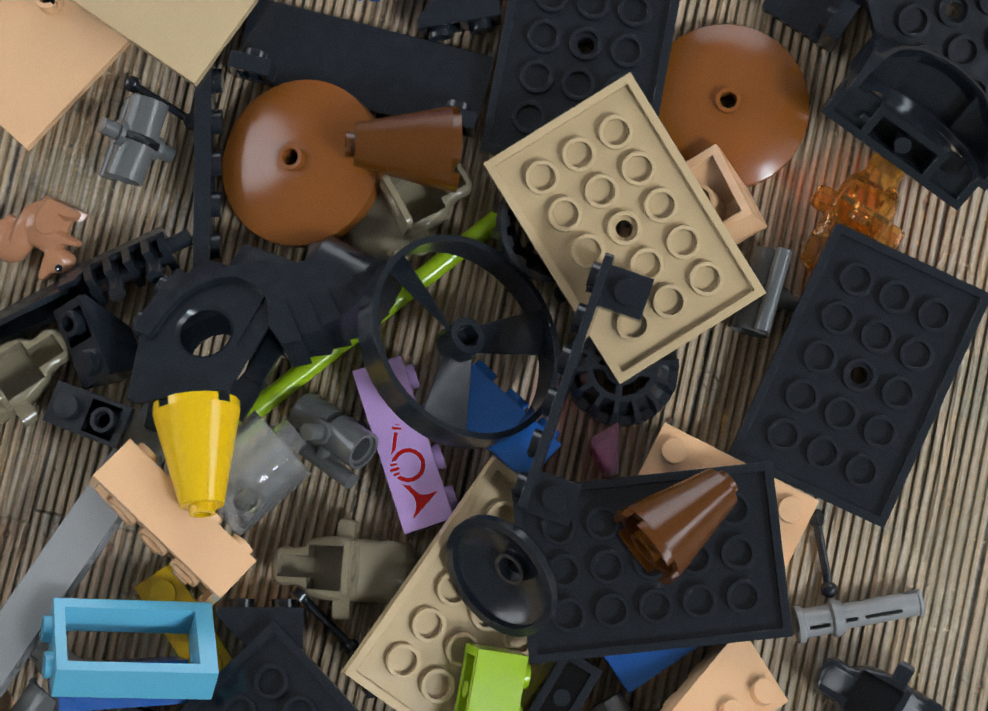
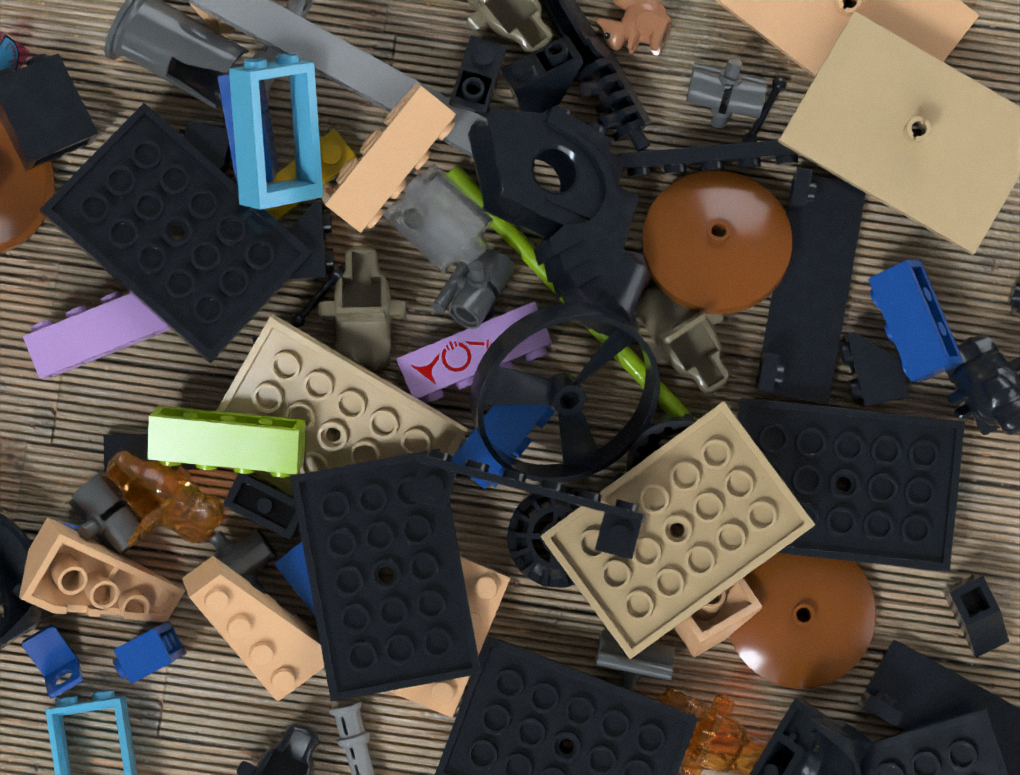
camera: 80 degrees right, 5 degrees up
(198, 447) = (451, 174): yellow cone -> none
(411, 146) = (733, 336): reddish brown cone -> none
(501, 575) = (362, 445): black dish -> none
(605, 451) = (481, 528): clear pink slope -> none
(676, 522) = (420, 594): reddish brown cone -> none
(829, 588) = (379, 732): black hinge -> none

